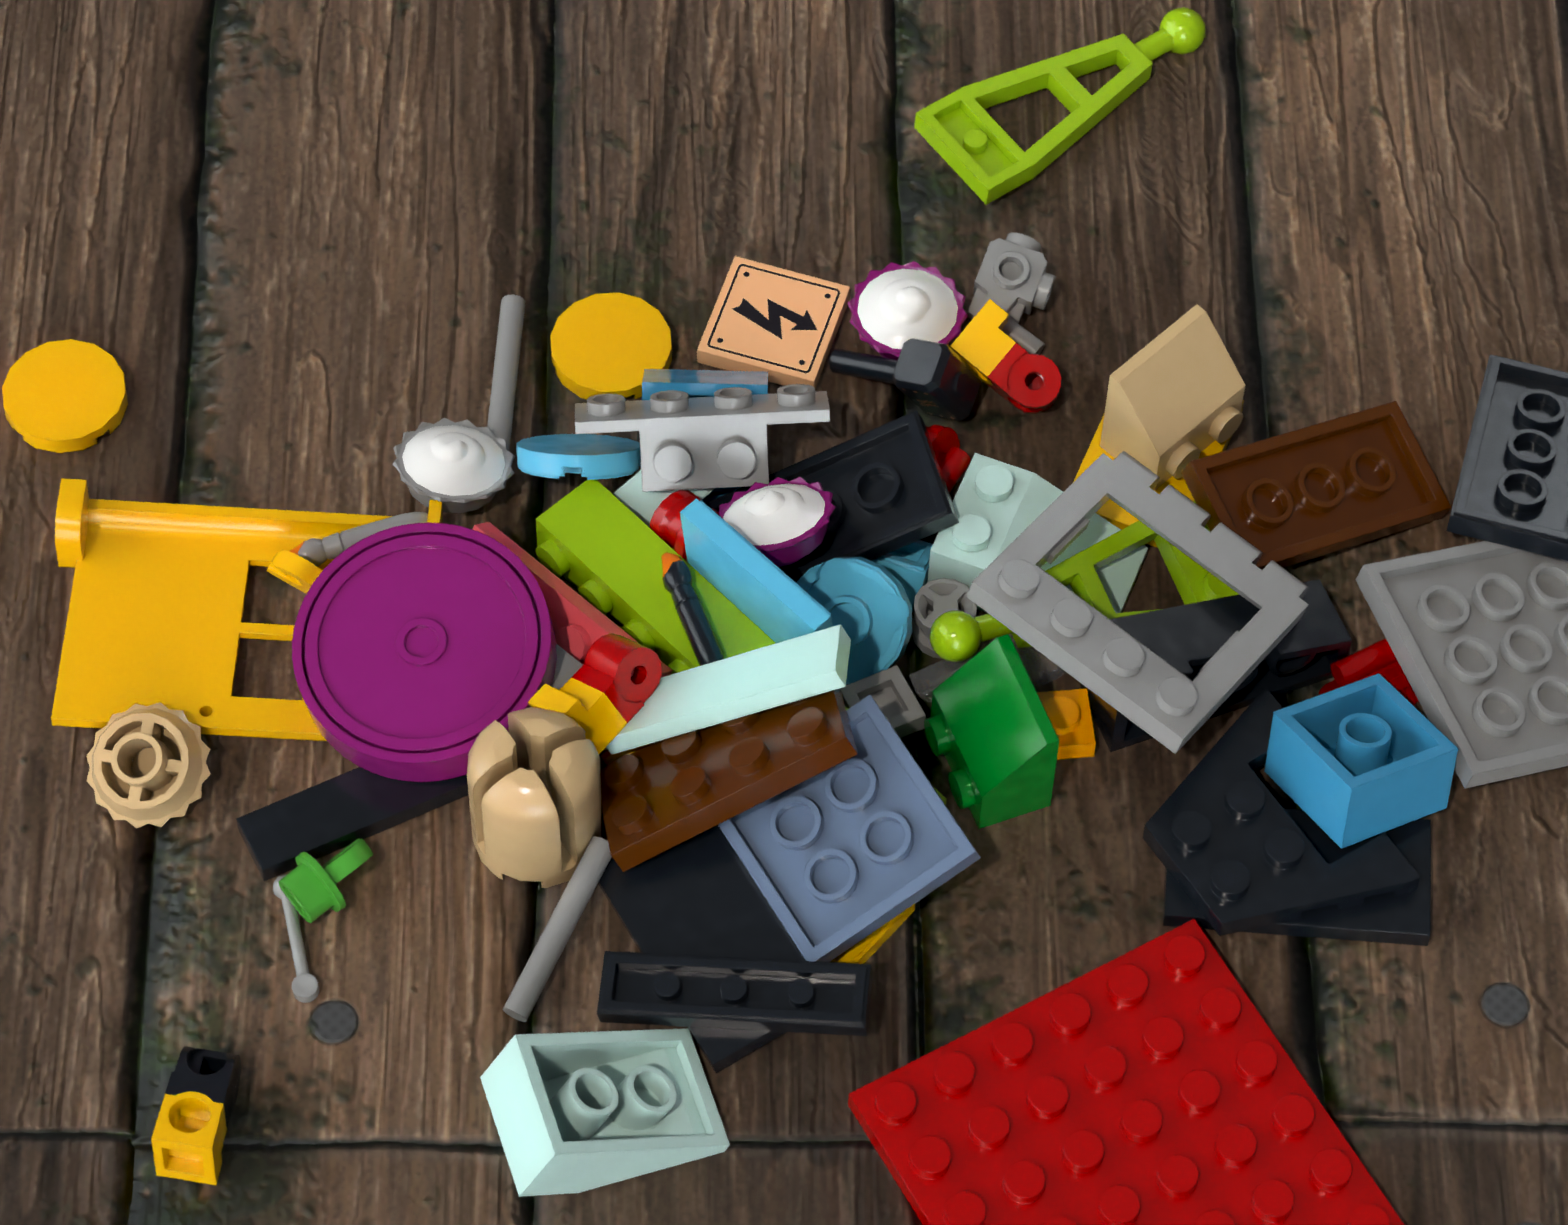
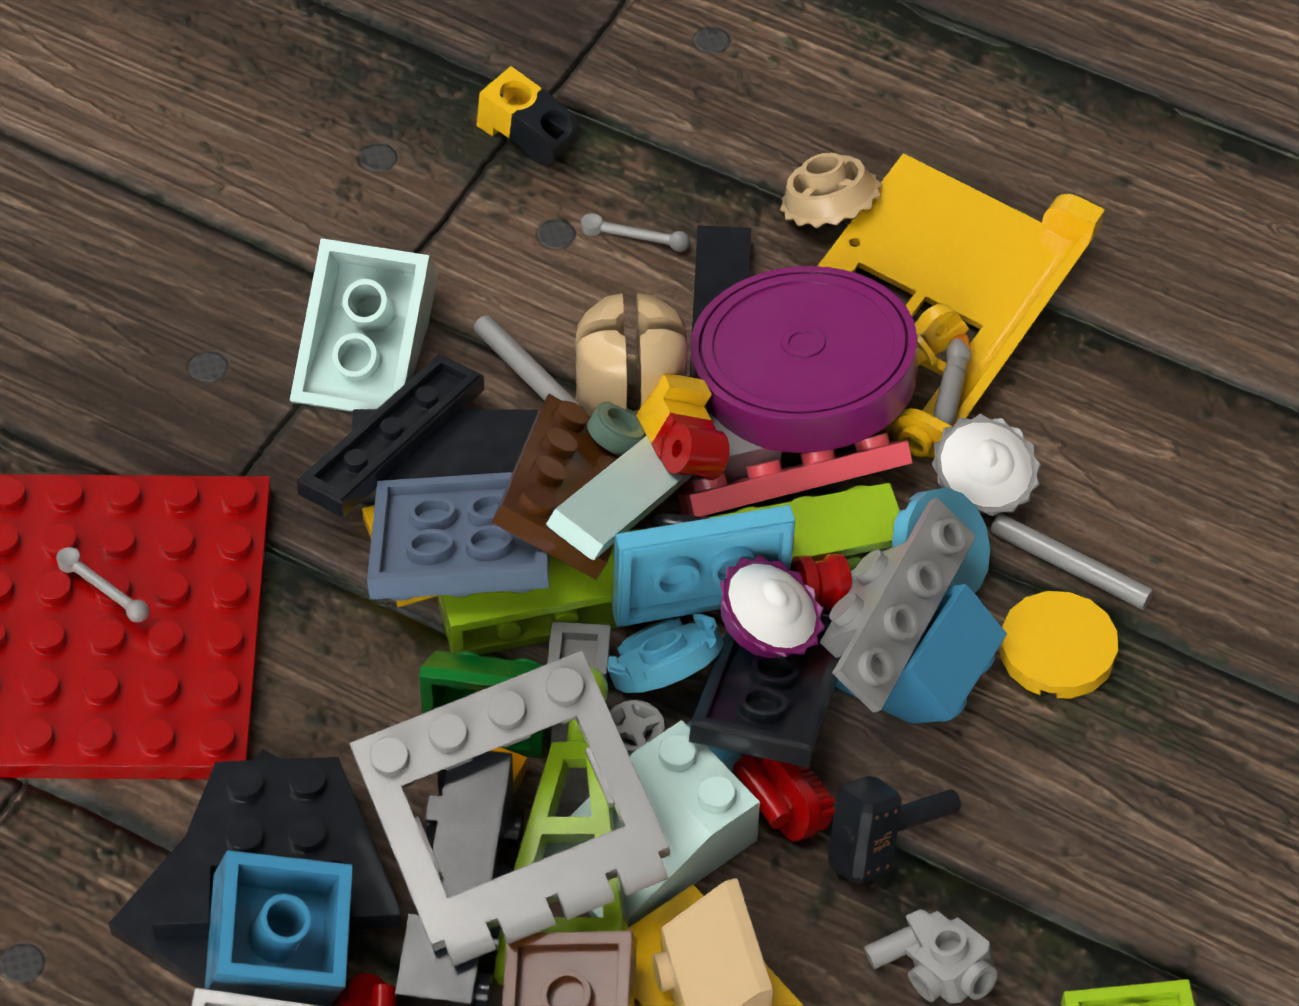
camera: 120 degrees right, 5 degrees down
(64, 395) = (1213, 278): yellow tile -> none
(313, 886) = (663, 252): bright green piece -> none
(625, 767) = (615, 428): none -> sand green tile
(773, 323) = (1017, 772): light nougat tile -> none
(905, 305) = (959, 855): white piece -> none
(1021, 378) = (855, 901): leg -> none
(1086, 1198) = (70, 561): none -> light grey hinge

